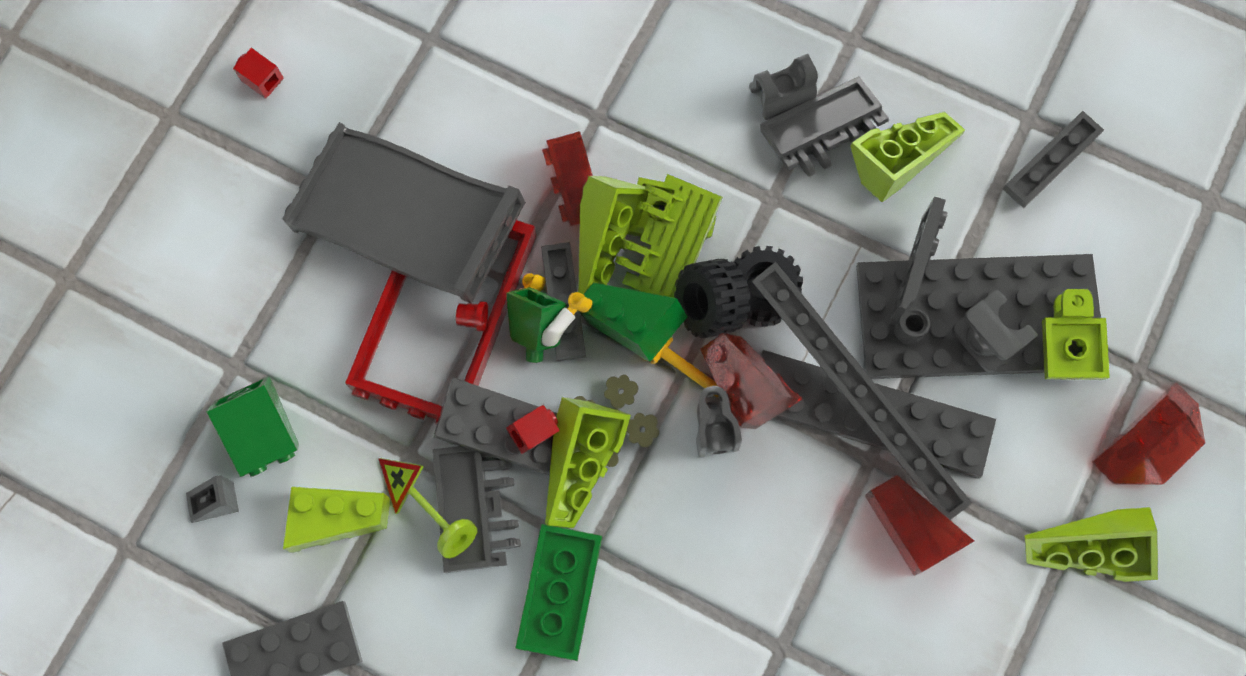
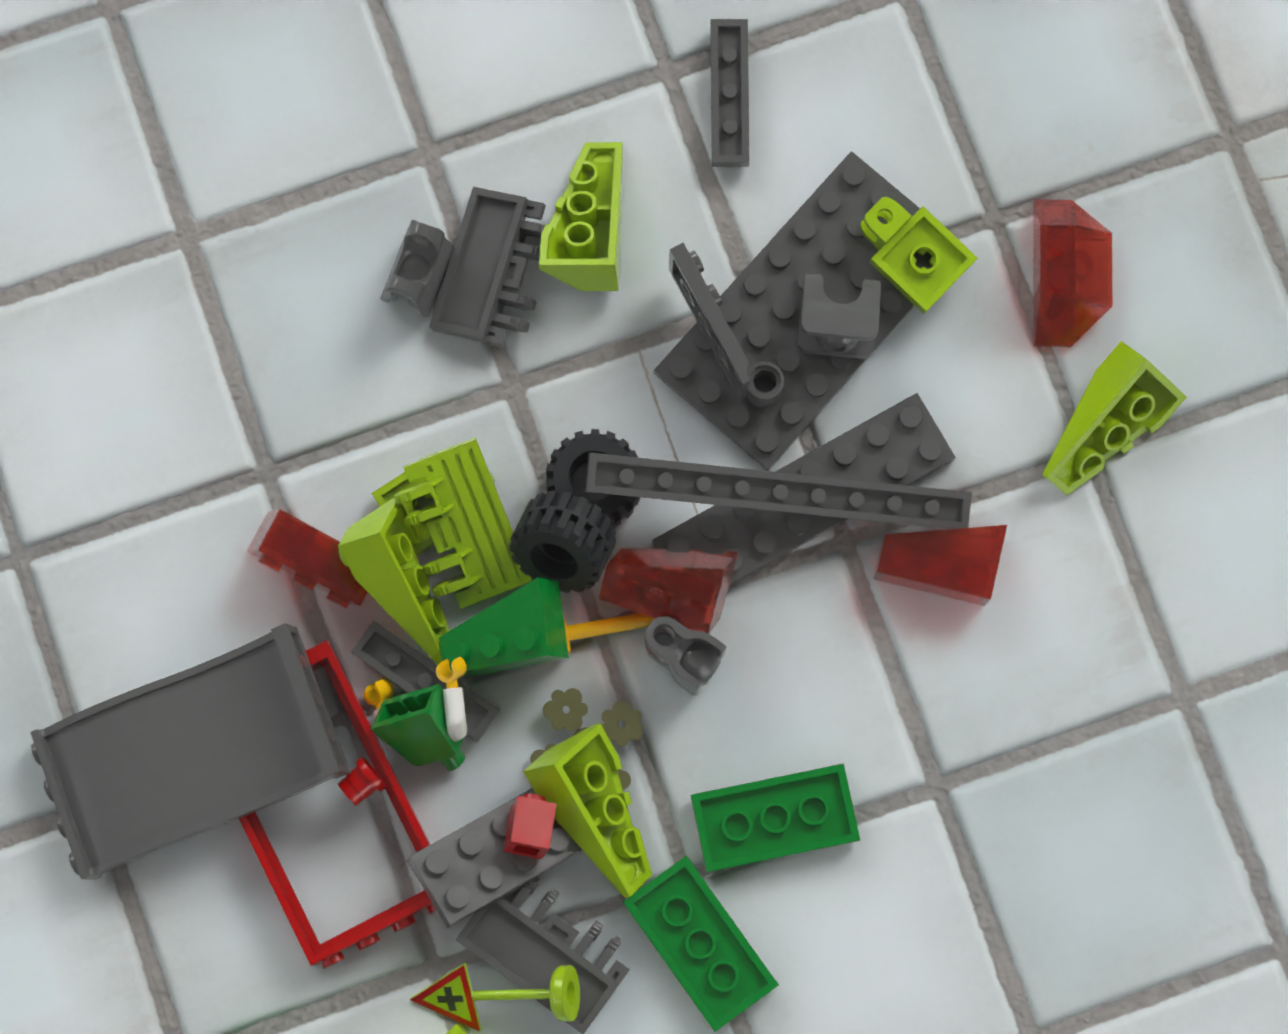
camera: 50 degrees left, 5 degrees up
(672, 567) = (775, 817): none -> green plate

